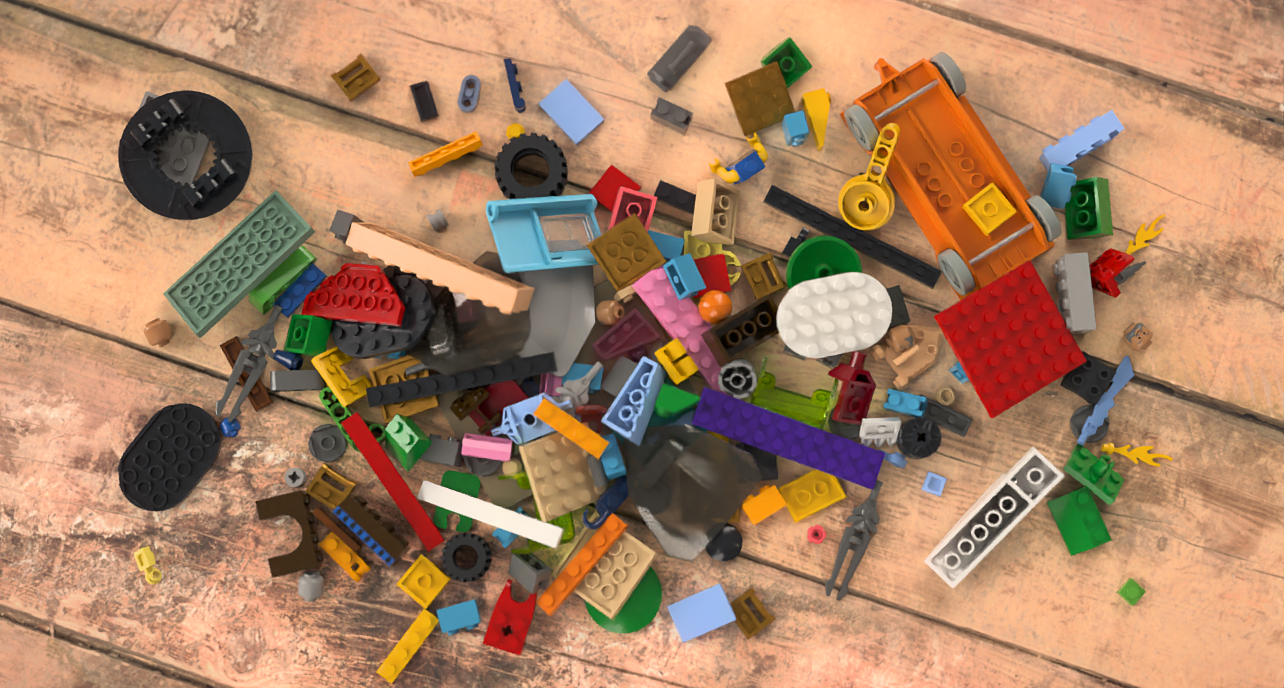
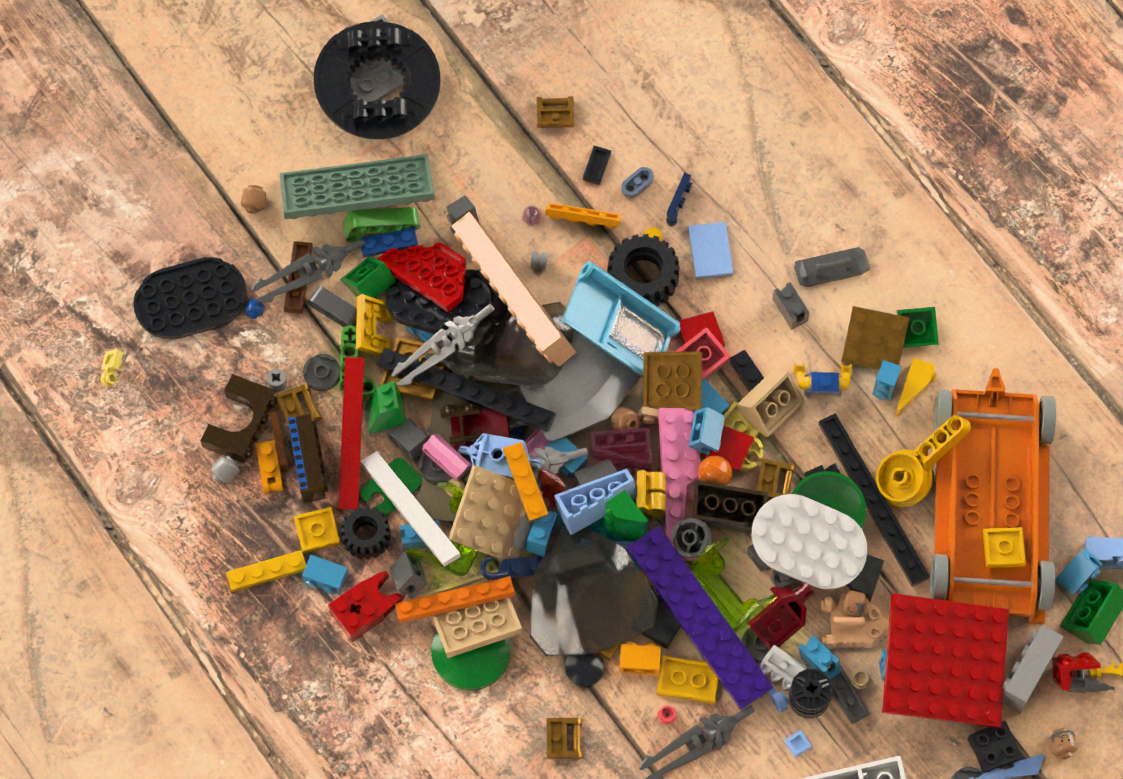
camera: 35 degrees right, 15 degrees down
(290, 360) = (340, 287): dark blue cone -> none
(401, 183) = (531, 215): none -> piece
(423, 336) = (459, 330): none -> light grey sword
(701, 612) = (524, 708): light blue tile -> none

